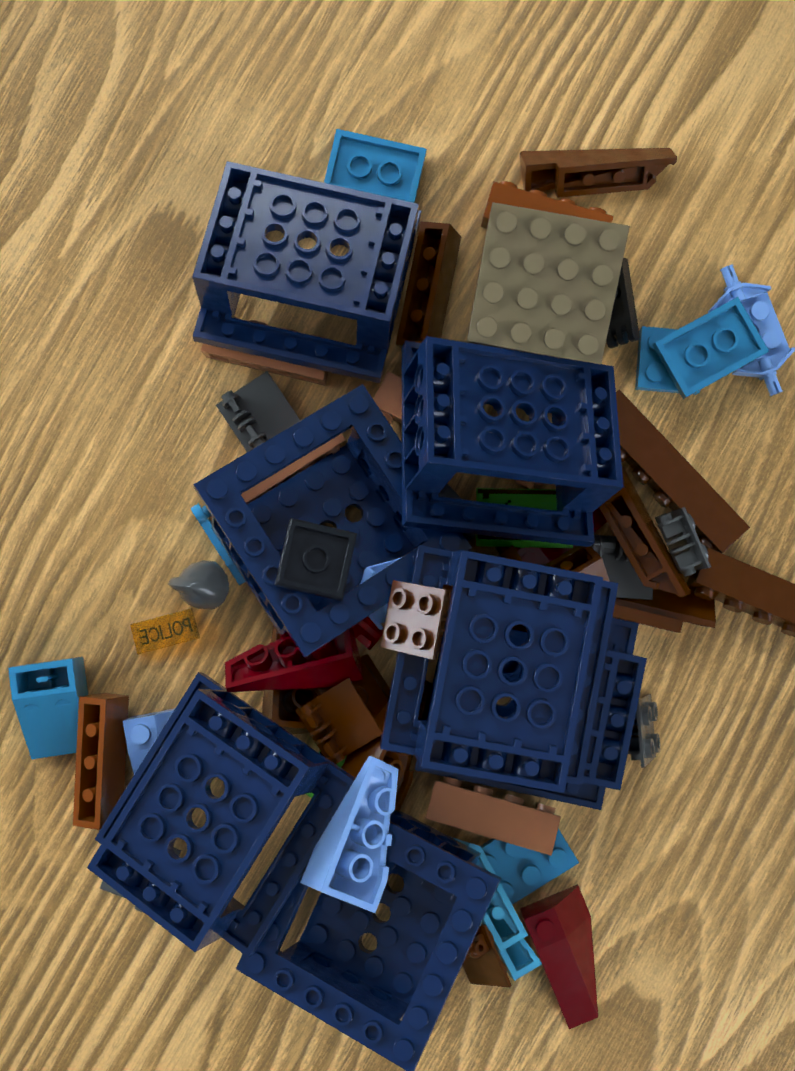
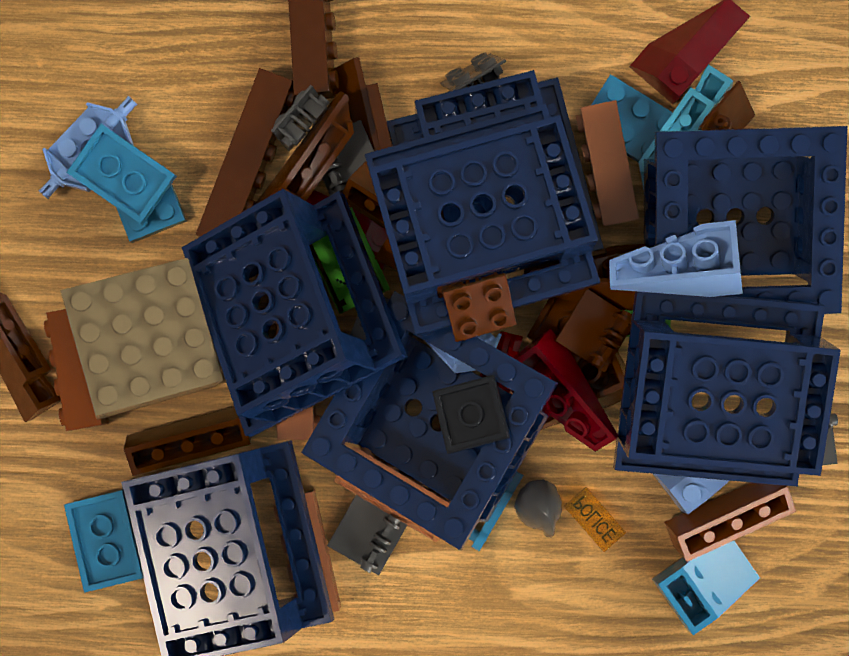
camera: 115 degrees left, 0 degrees up
(623, 319) = (131, 259): black hinge -> none

